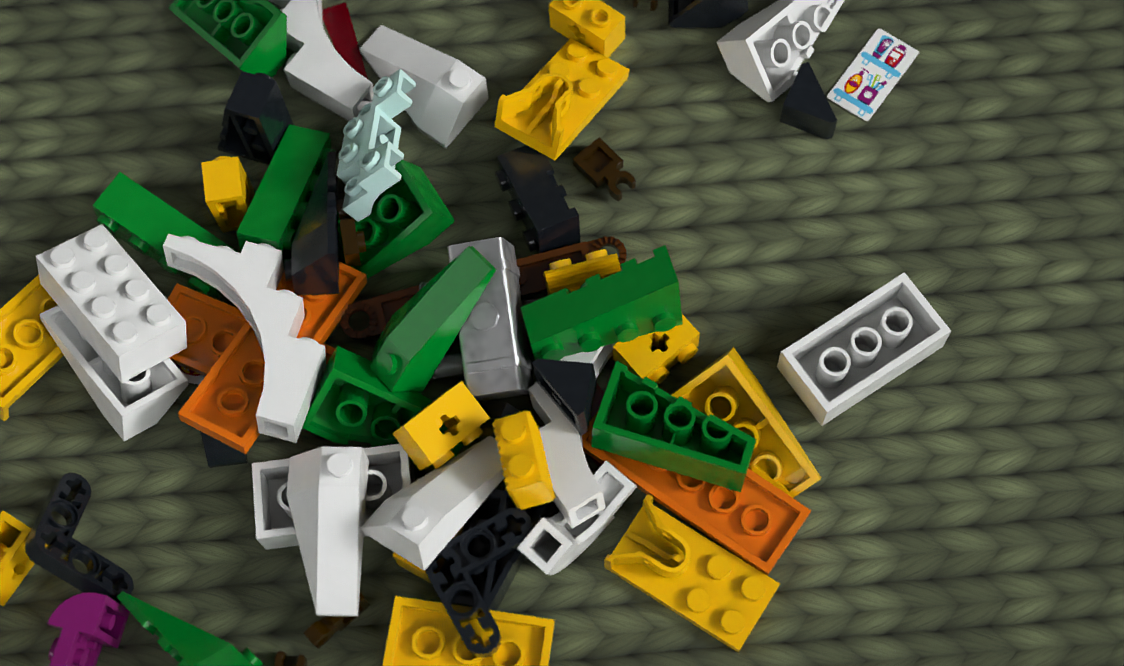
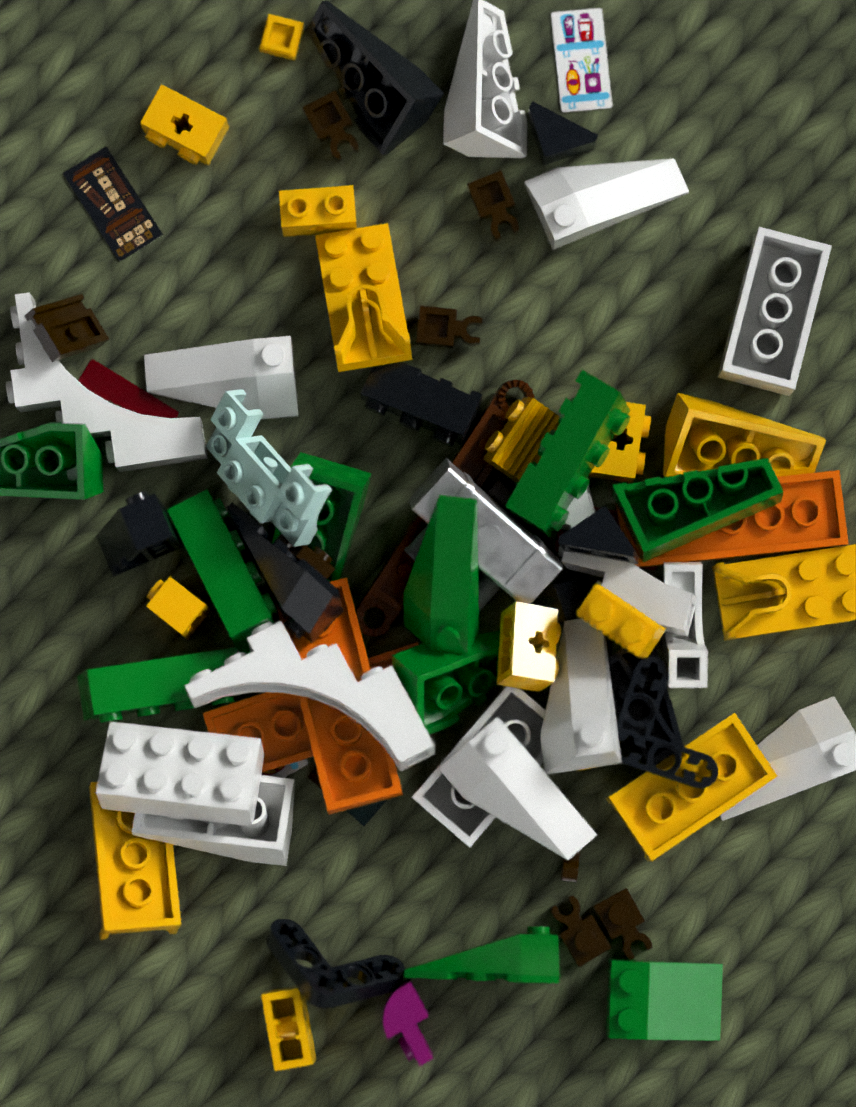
camera: 50 degrees left, 15 degrees up
(718, 112) = (493, 199): none -> dark brown plate
(795, 169) = (593, 197): none -> white wedge

